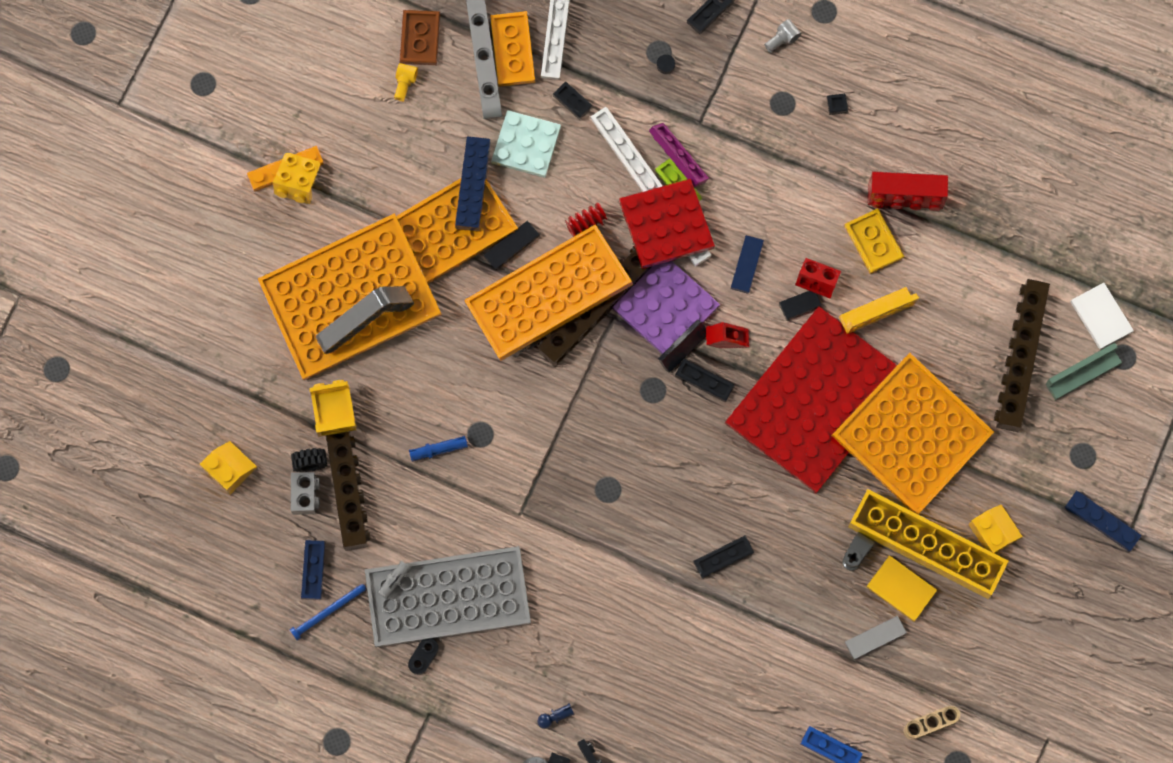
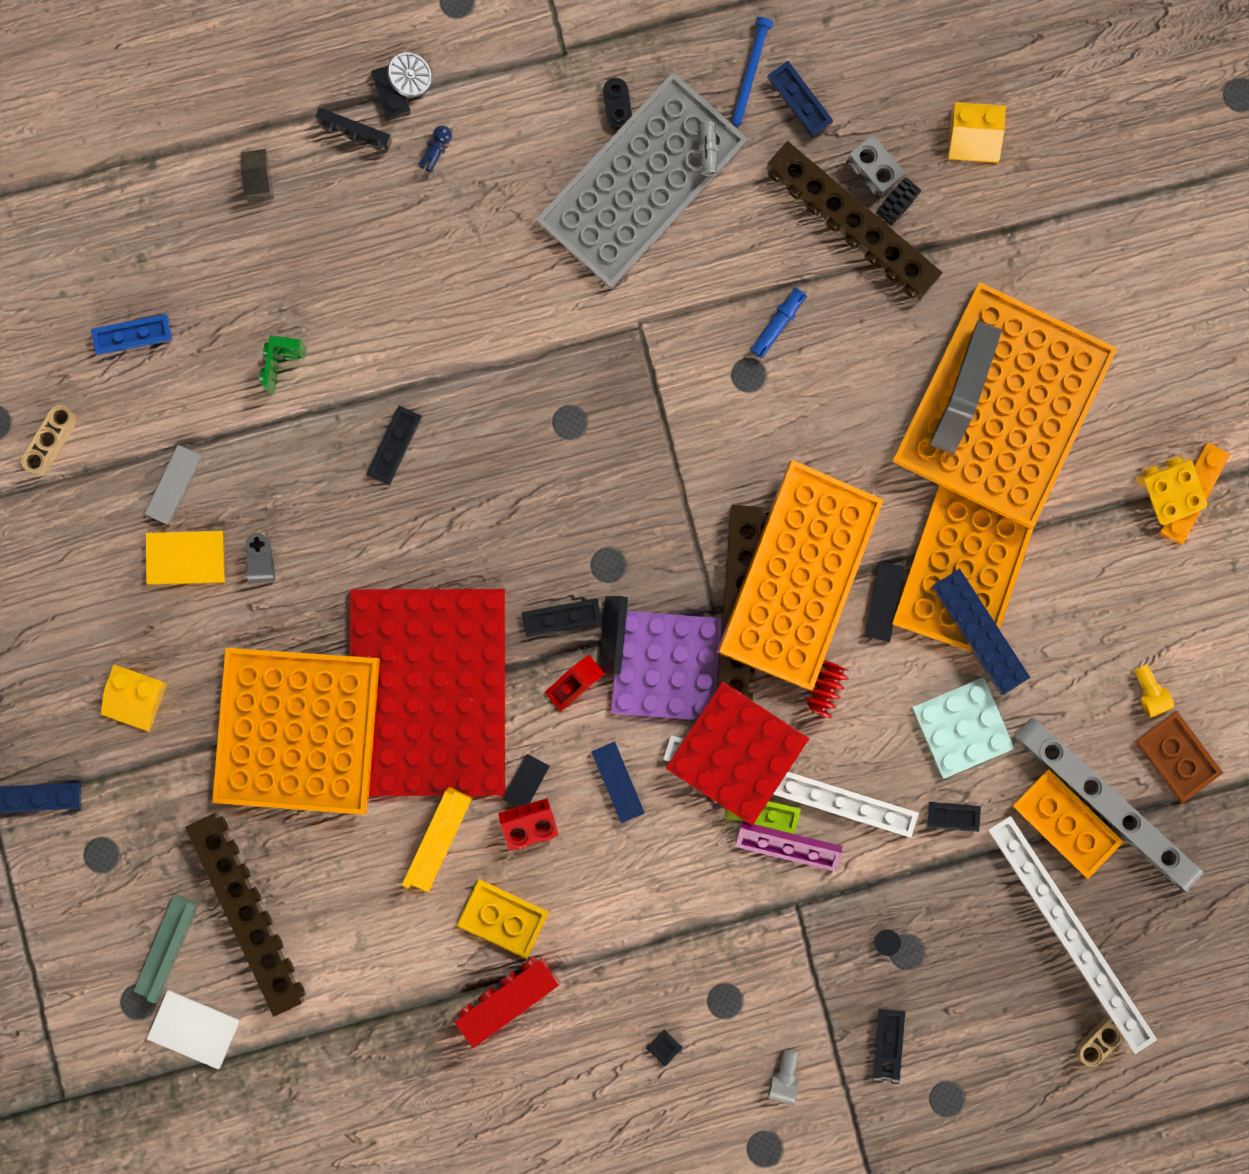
camera: 135 degrees right, 10 degrees up
(332, 408) = (918, 269): yellow panel -> none
(743, 661) = (277, 346): none -> green bracket
(928, 544) = (190, 622): yellow brick -> none

